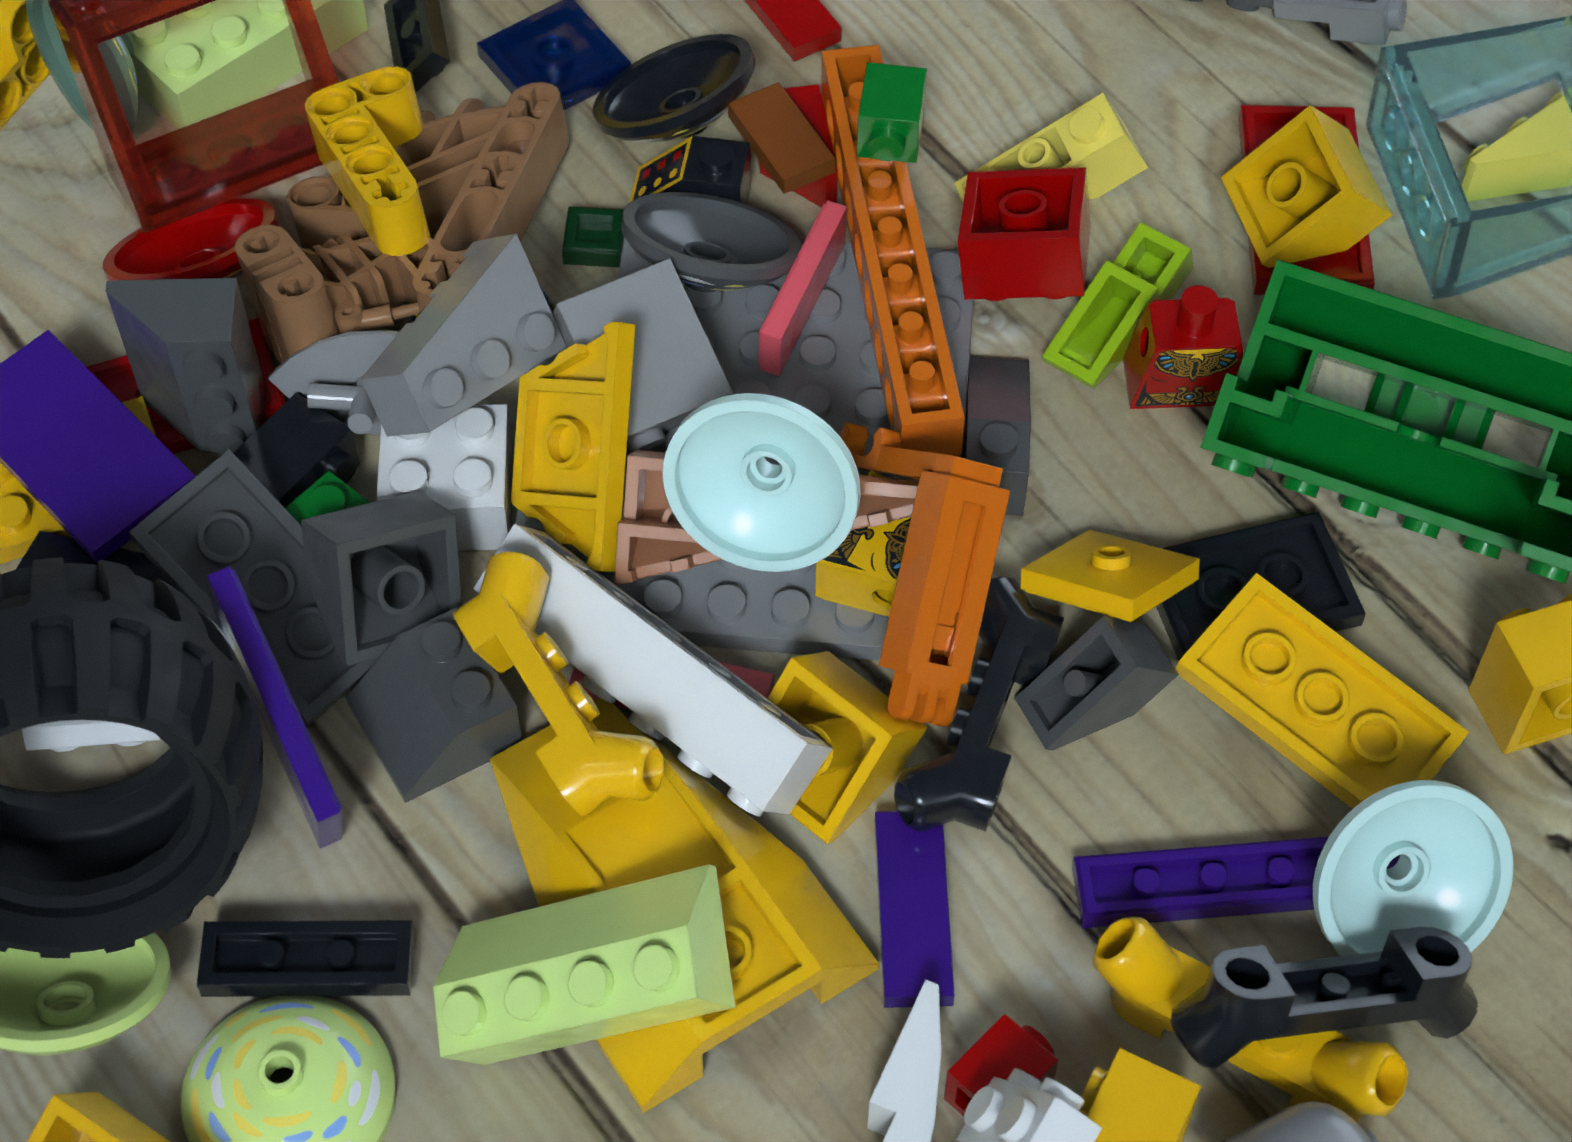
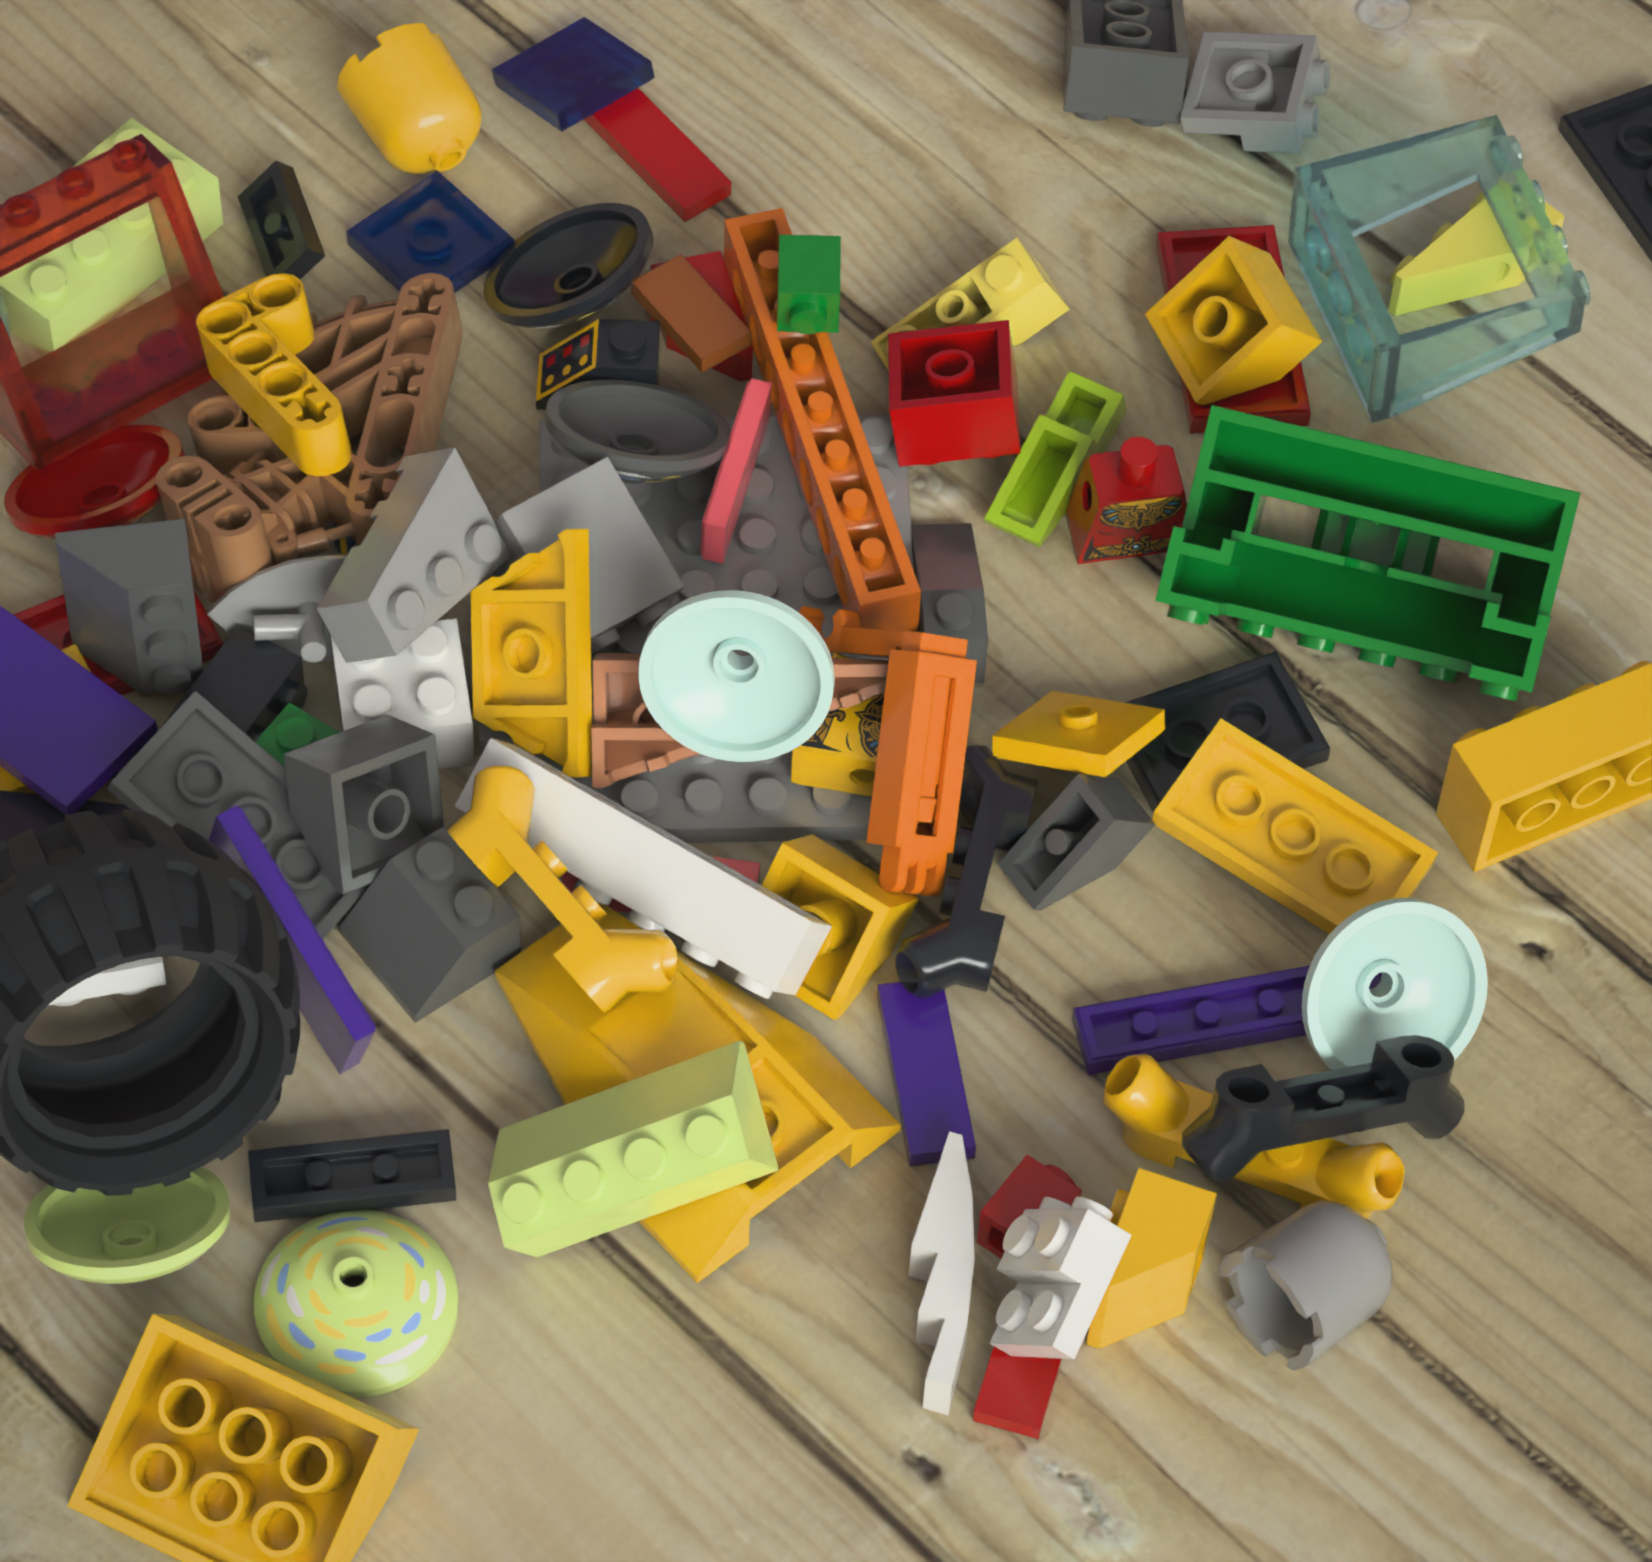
camera: 10 degrees left, 0 degrees up
(593, 237) = (506, 432): dark green tile -> none

